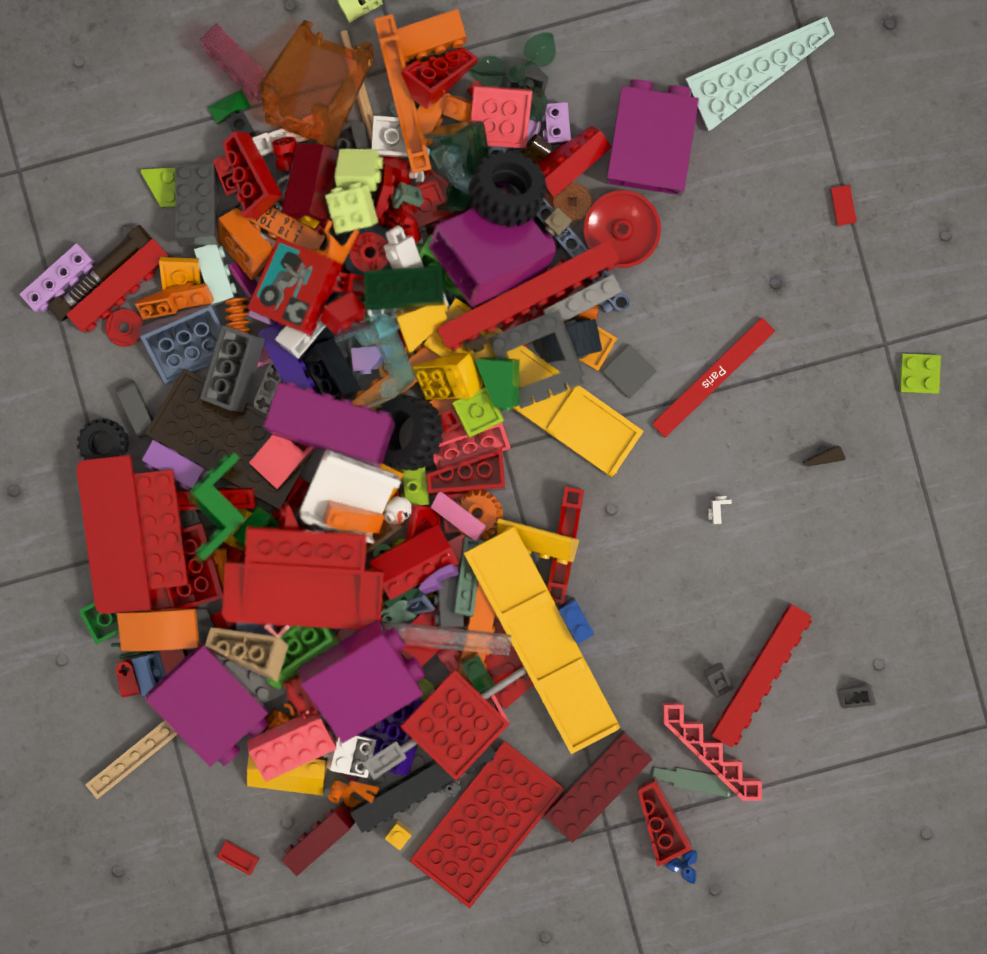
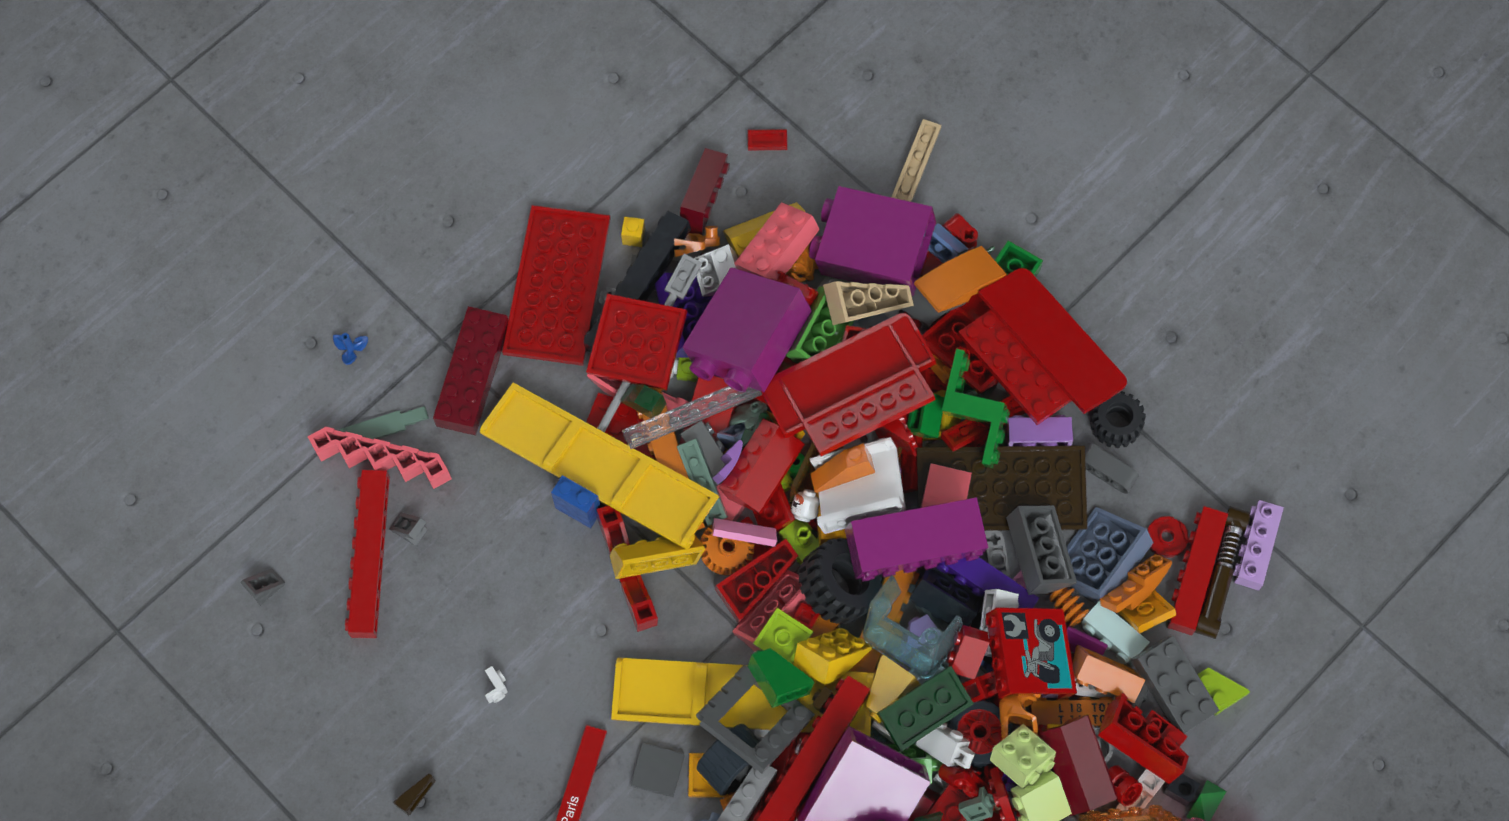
camera: 150 degrees right, 20 degrees down
(663, 825) = (392, 370): red wedge -> none

